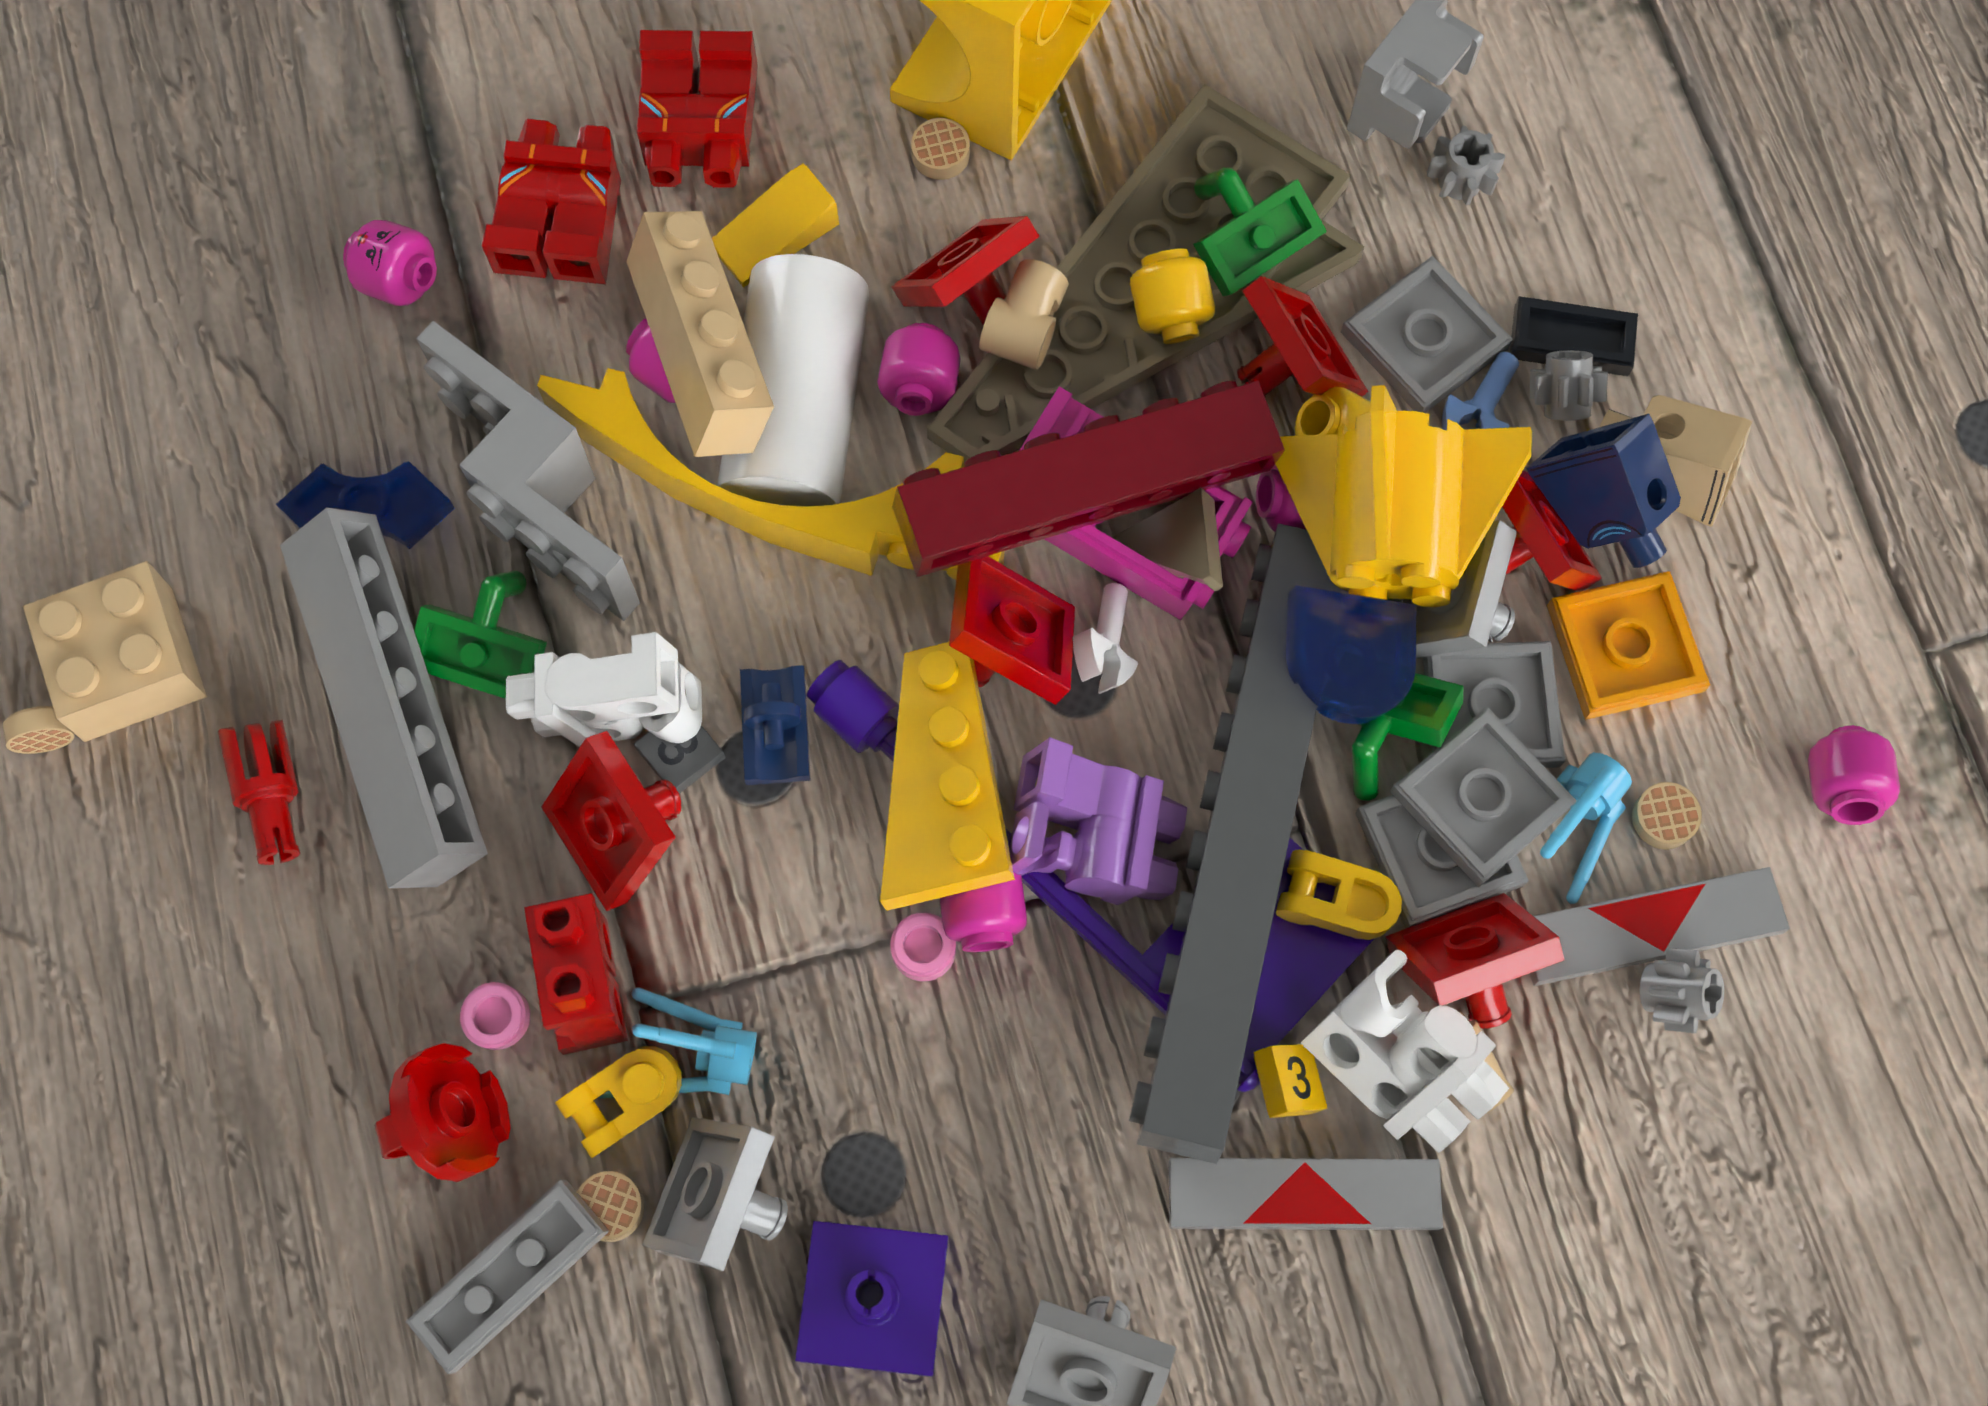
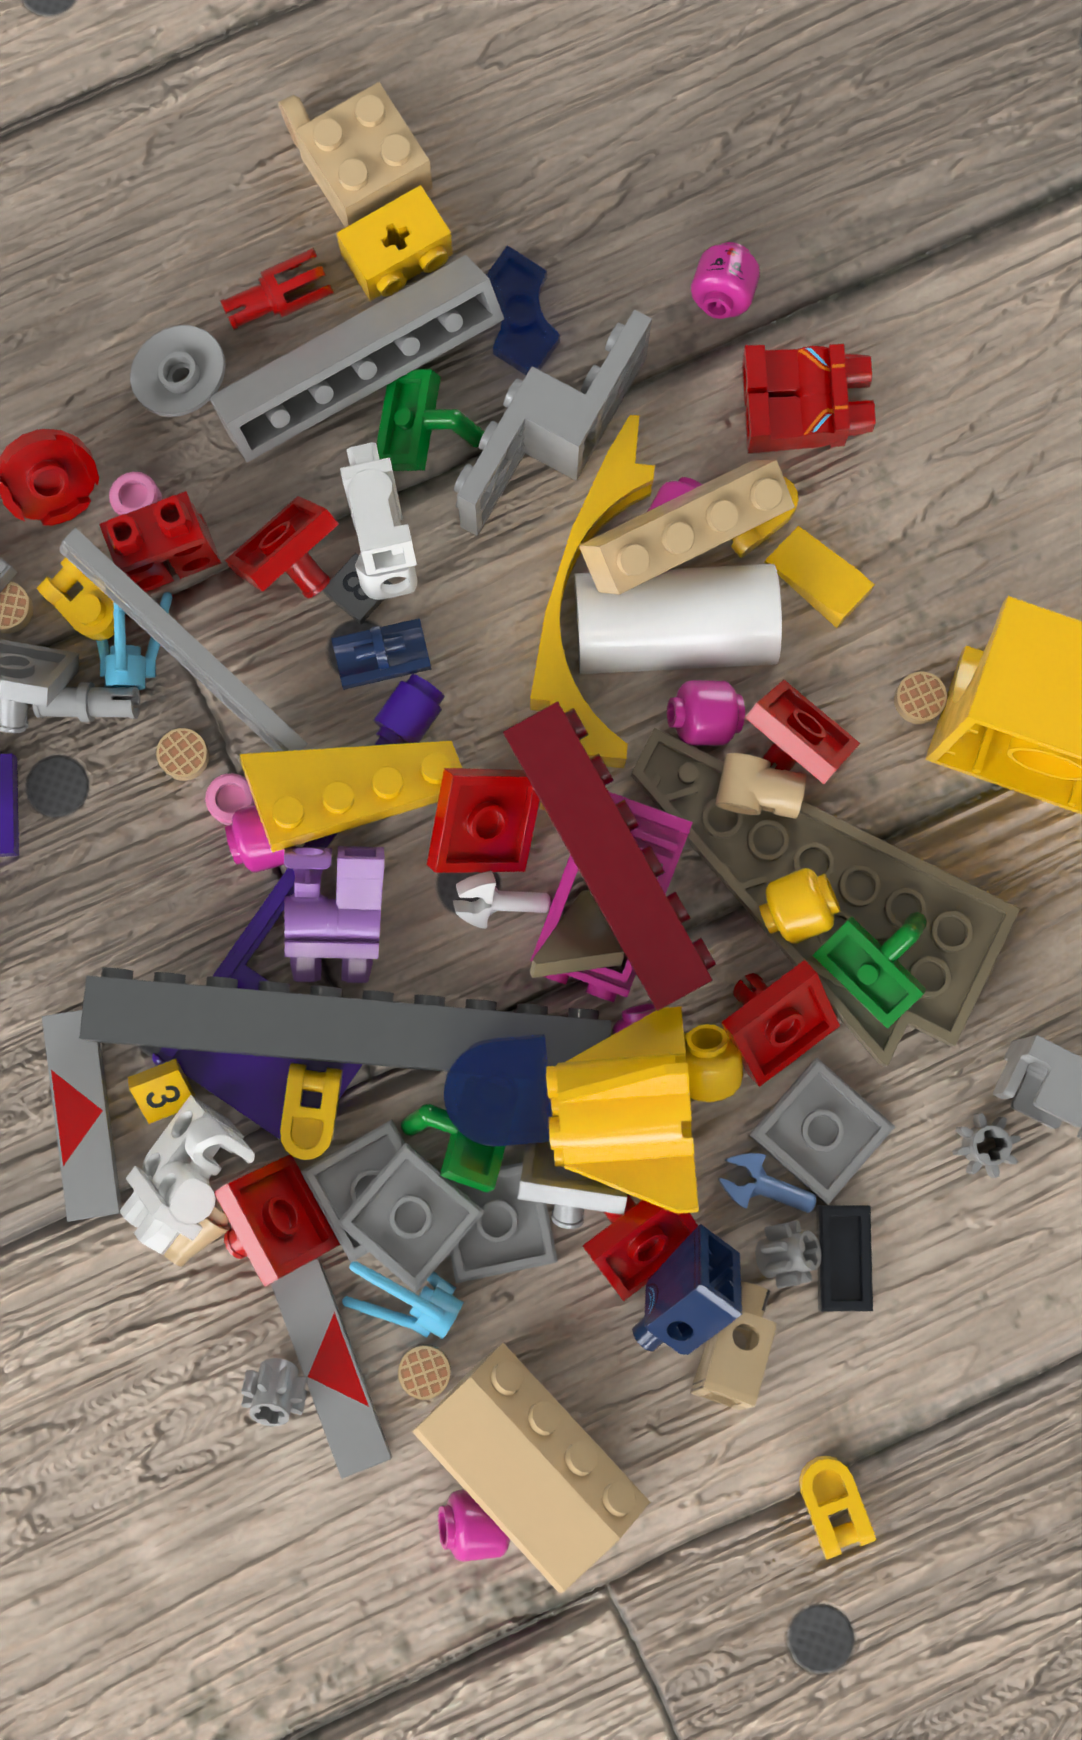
camera: 80 degrees right, 10 degrees up
(217, 608) = (406, 222): none -> yellow brick
(313, 923) = (167, 359): none -> light grey dish
(693, 128) = (916, 490): red hips -> none
(716, 958) = (179, 643): none -> light grey tile
(767, 1094) = (91, 702): none -> light grey pin
(853, 999) = (182, 754): none -> tile
(1627, 645) = (568, 1327): light orange tile -> none
(1794, 694) = (531, 1468): none -> tan slope
(1834, 392) = (828, 1489): none -> yellow plate

